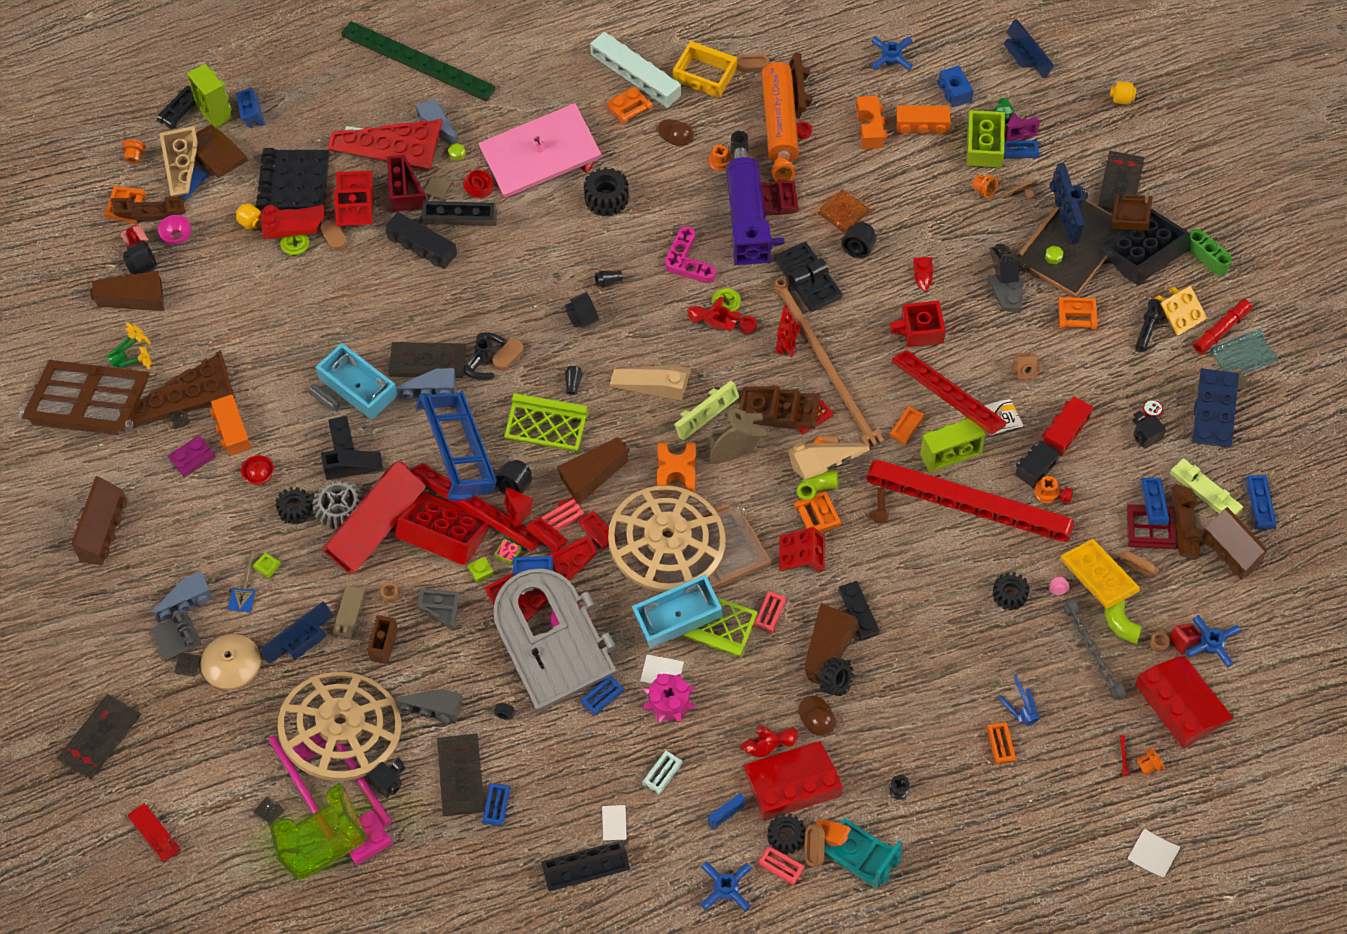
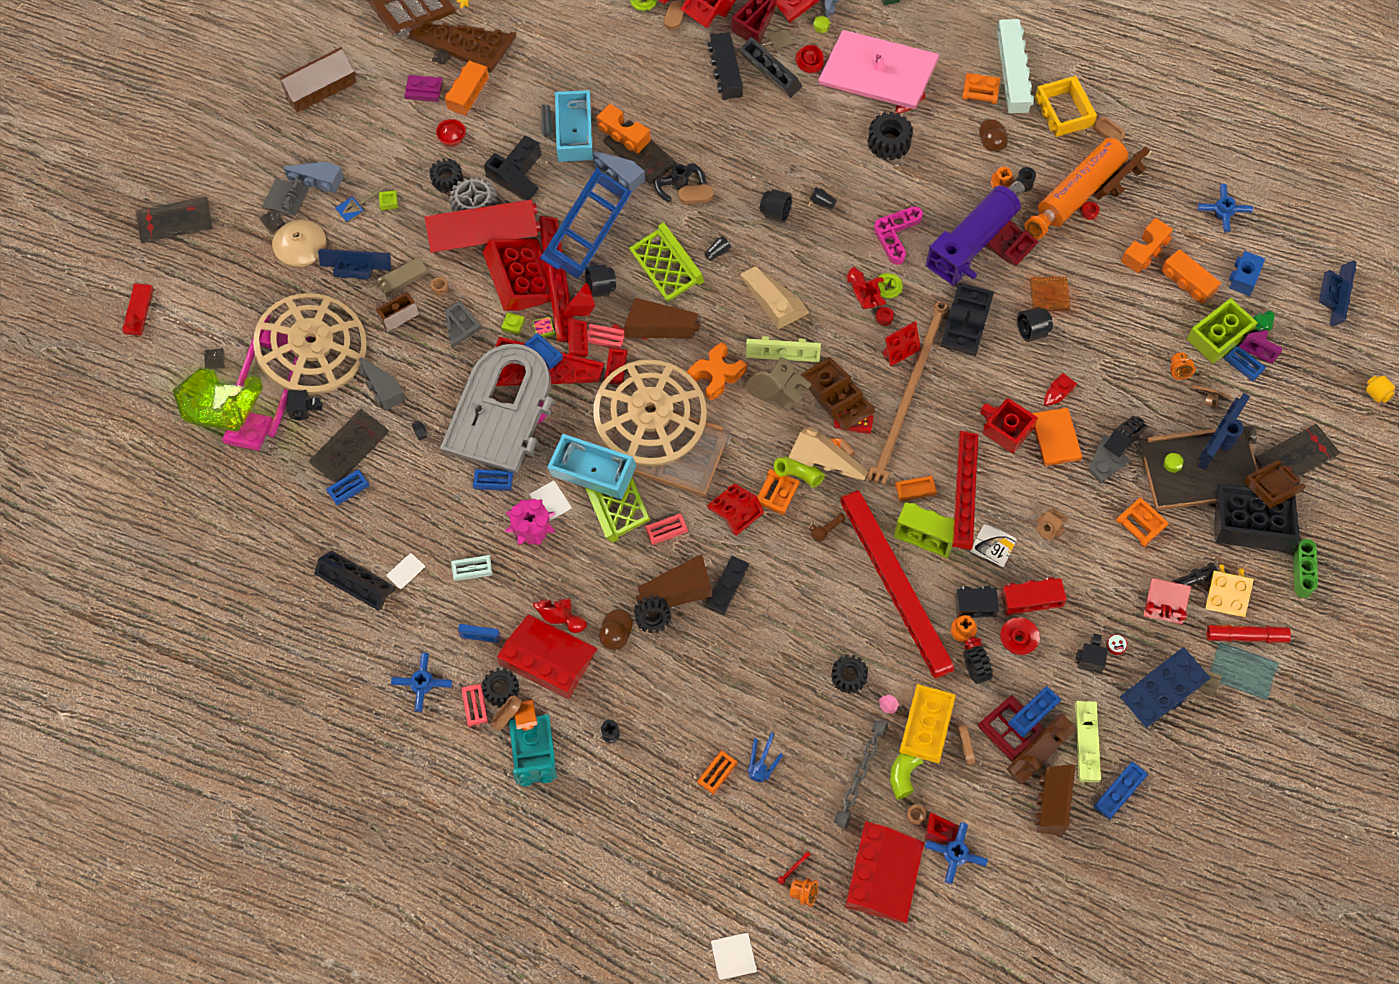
camera: 45 degrees right, 5 degrees up
(412, 353) = (633, 137): none -> orange arch
(960, 305) = (1057, 437): none -> orange tile
(1087, 503) = (978, 664): none -> black tyre
(1092, 454) = (1023, 628): none -> red dish
(1153, 350) = (1167, 601): none -> hinge

